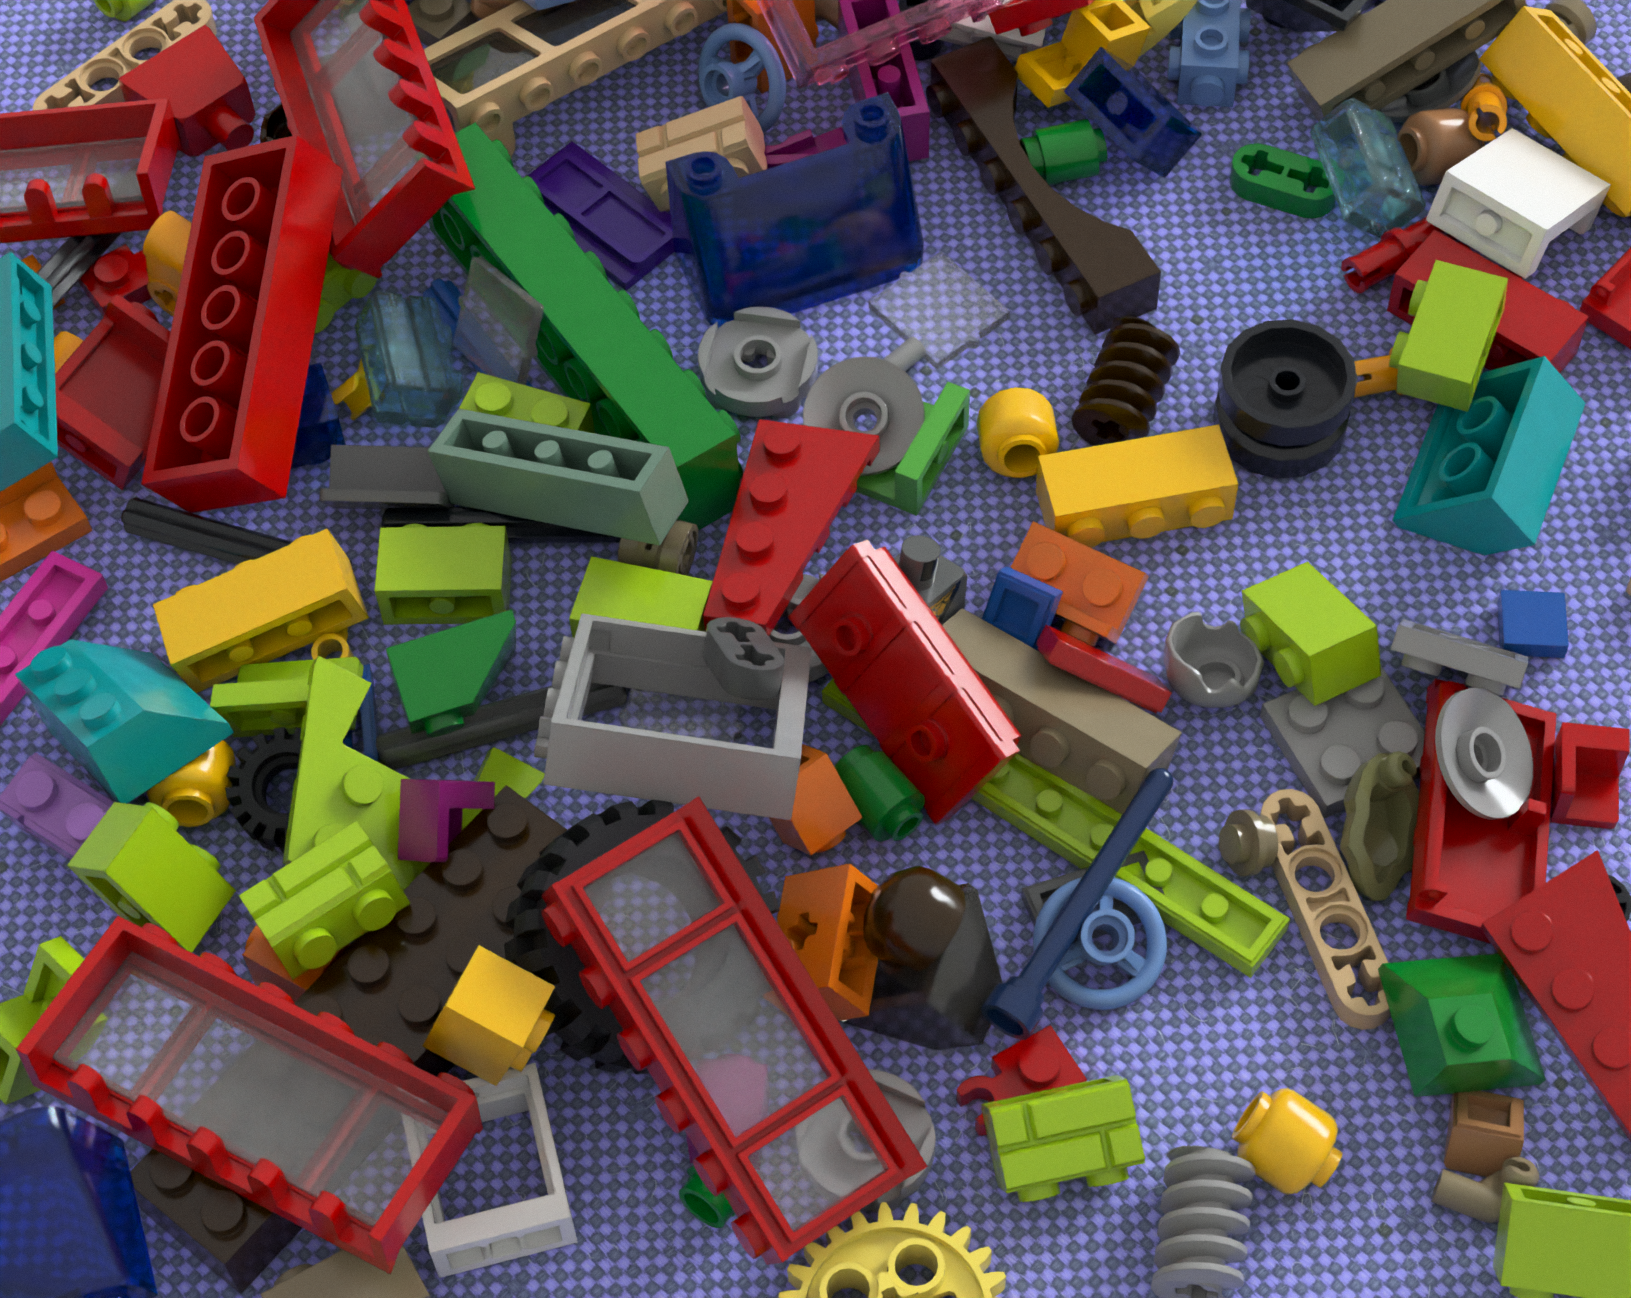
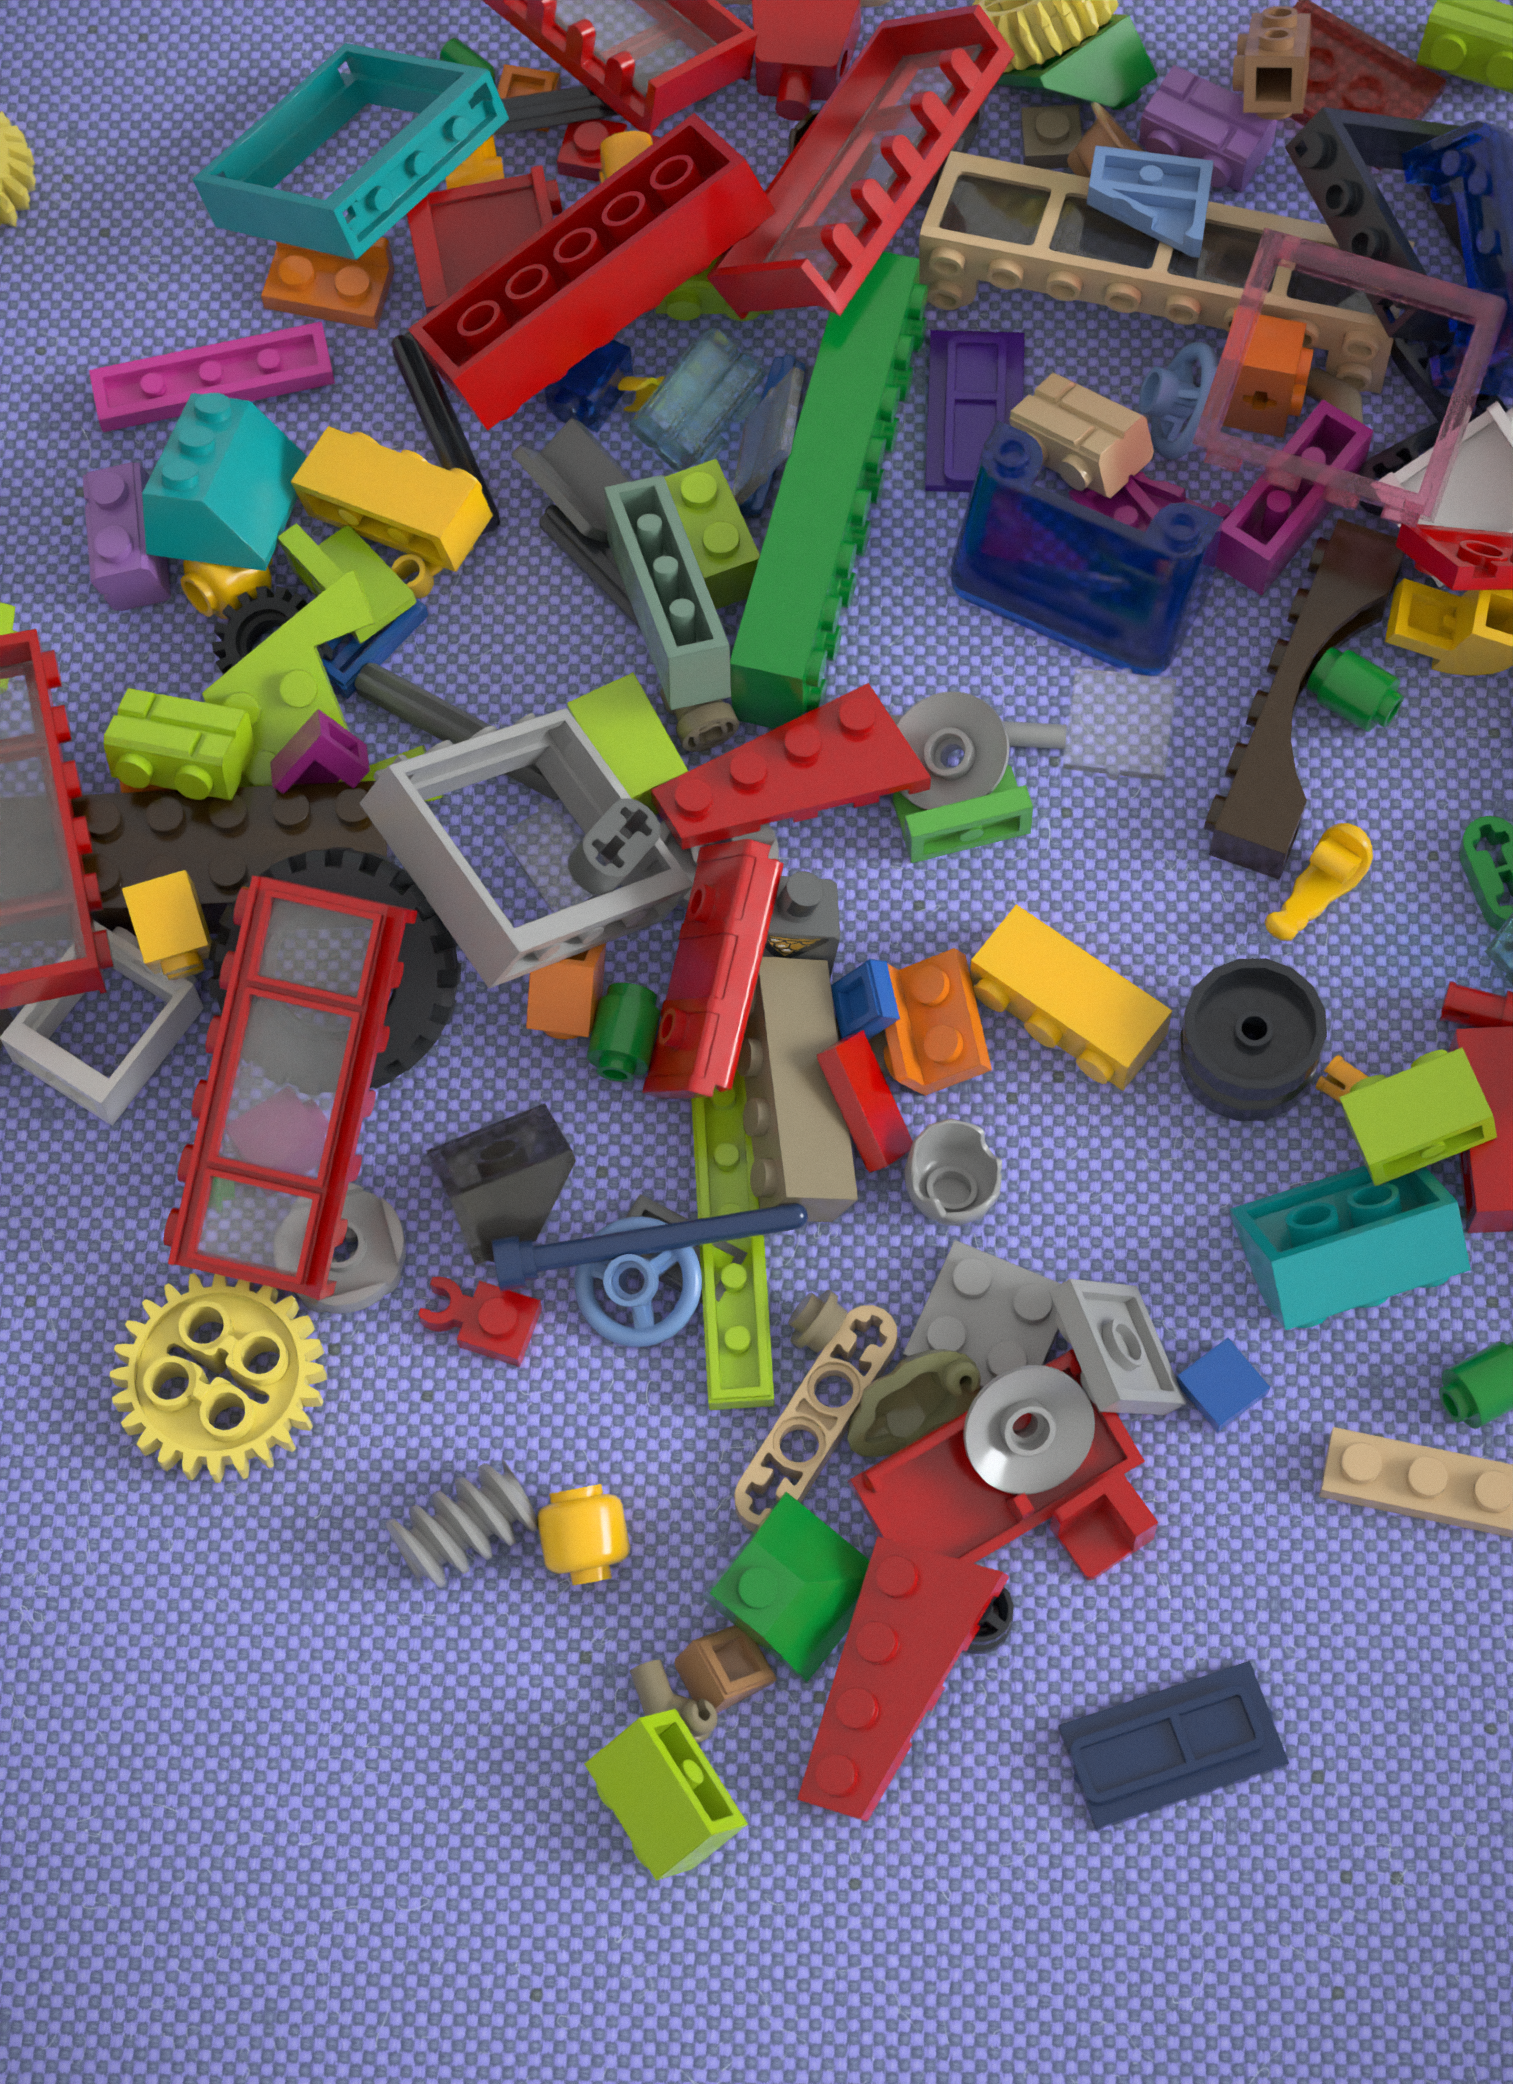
camera: 50 degrees right, 10 degrees up
(152, 872) = (116, 621): lime brick -> none
(442, 573) = (541, 587): lime brick -> none
(450, 671) = (444, 667): green slope -> none
(765, 390) = (944, 608): light grey plate -> none
(824, 925) = (460, 1097): orange brick -> none
(913, 917) = (514, 1134): dark brown hair -> none
(1015, 430) = (1040, 872): yellow head -> none
(1063, 1136) = (449, 1376): lime brick -> none
(1125, 382) = (1161, 912): dark brown piece -> none
(1132, 112) = (1440, 708): clear blue brick -> none
(1185, 267) = (1334, 869): none -> yellow piece
(1311, 633) = (1036, 1225): lime brick -> none

